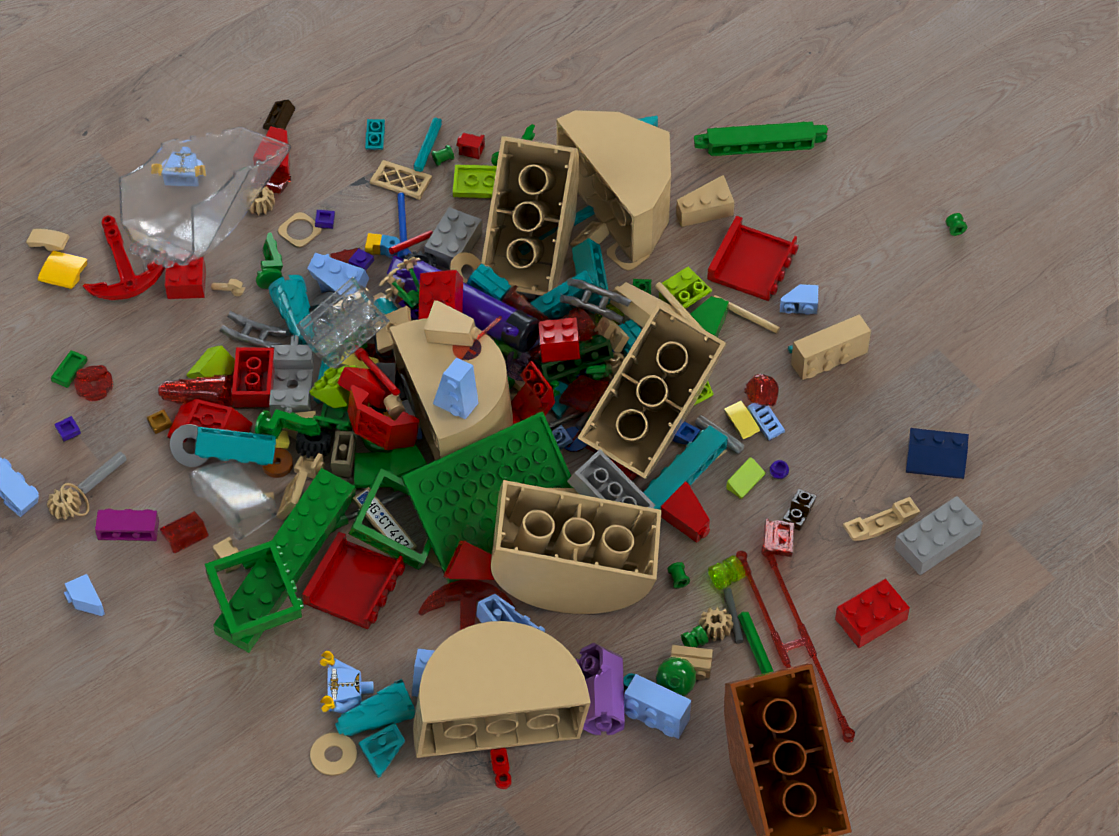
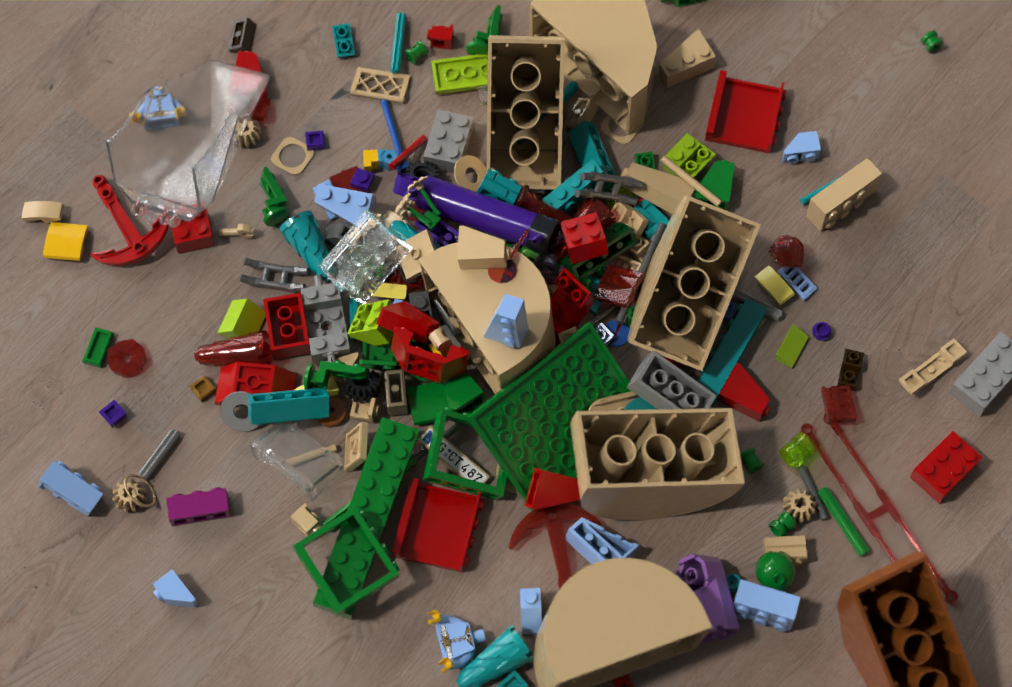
camera: 10 degrees left, 10 degrees up
(184, 532) = (257, 503): clear red bracket -> none
(362, 355) = (391, 286): red bar -> none
(441, 287) = (456, 209): red brick -> none
(598, 372) = (627, 261): green slope -> none
(752, 317) = (756, 173): tan bar -> none
(937, 453) = (968, 287): dark blue slope -> none

